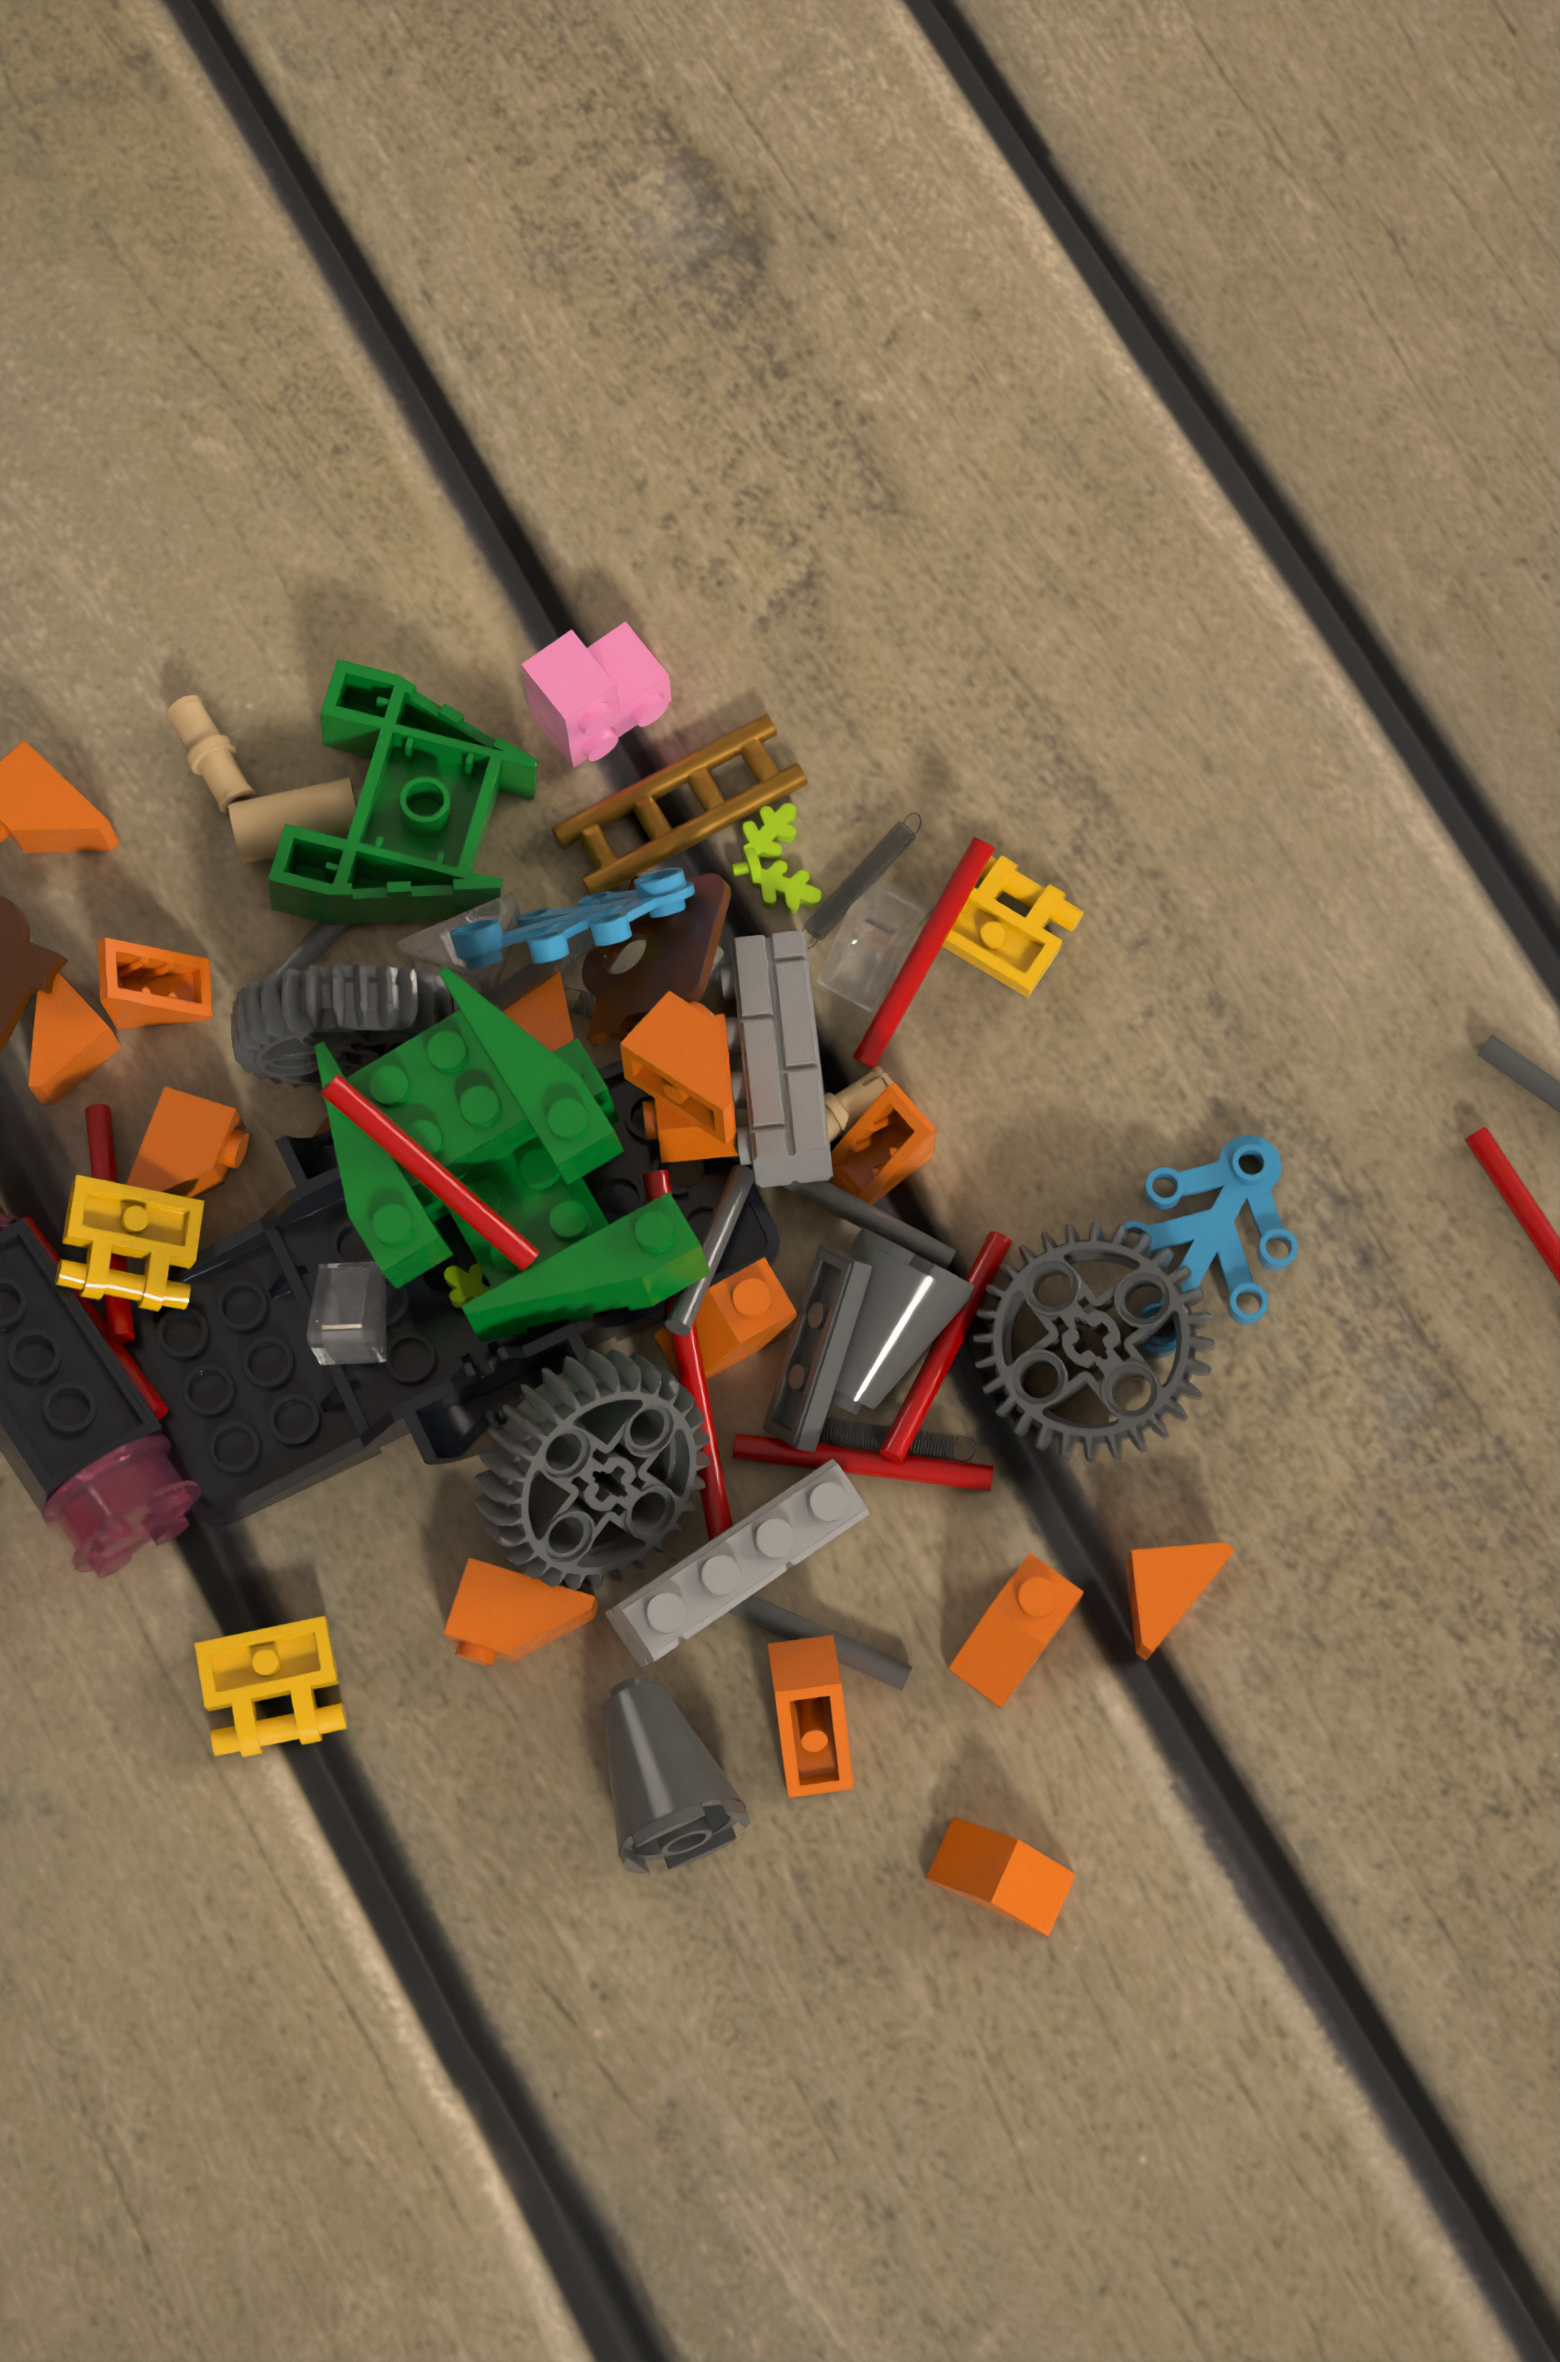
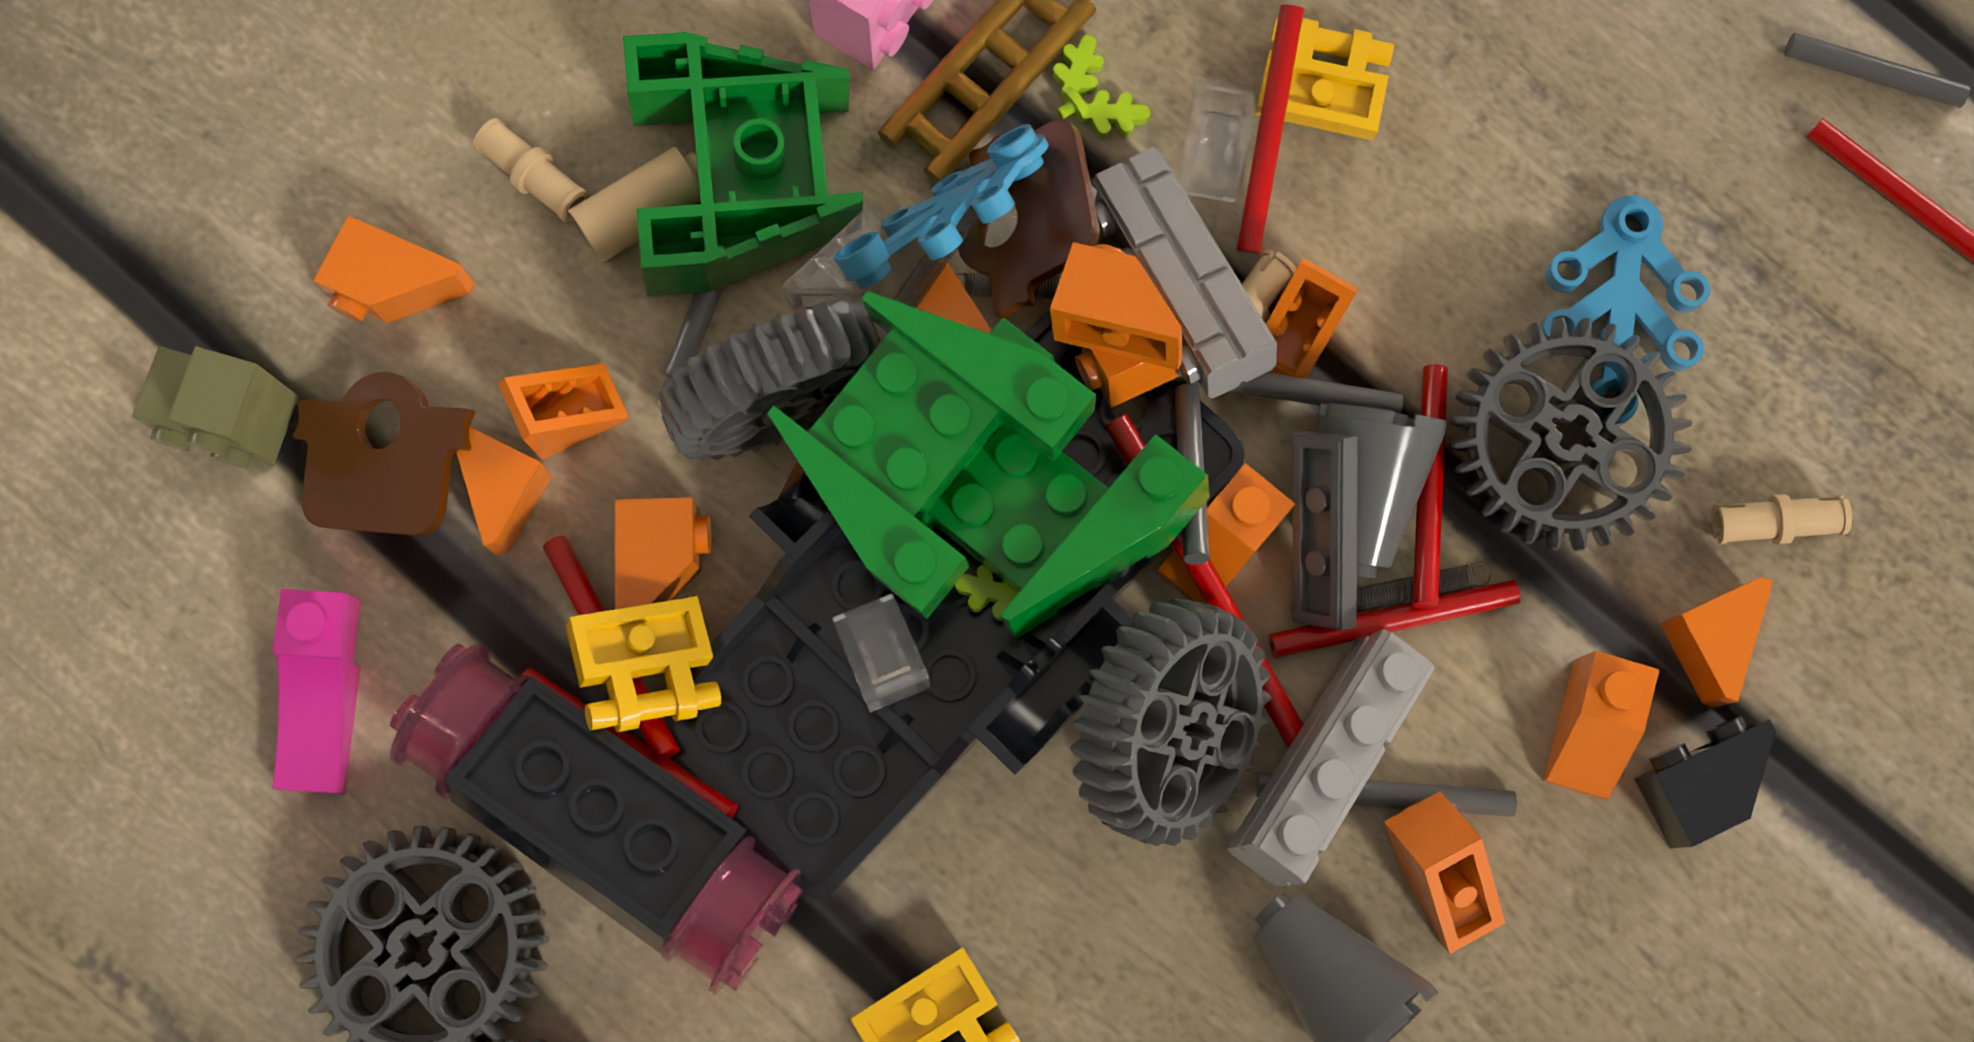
camera: 25 degrees left, 5 degrees up
(429, 1171) = (926, 496): red bar -> none
(511, 1614) = (1134, 881): orange slope -> none
(826, 915) = (1163, 121): dark grey piece -> none
(1001, 1875) = (1667, 954): orange slope -> none
(1097, 1727) = (1711, 786): none -> black slope
(1279, 1500) = (1781, 519): none -> tan pin

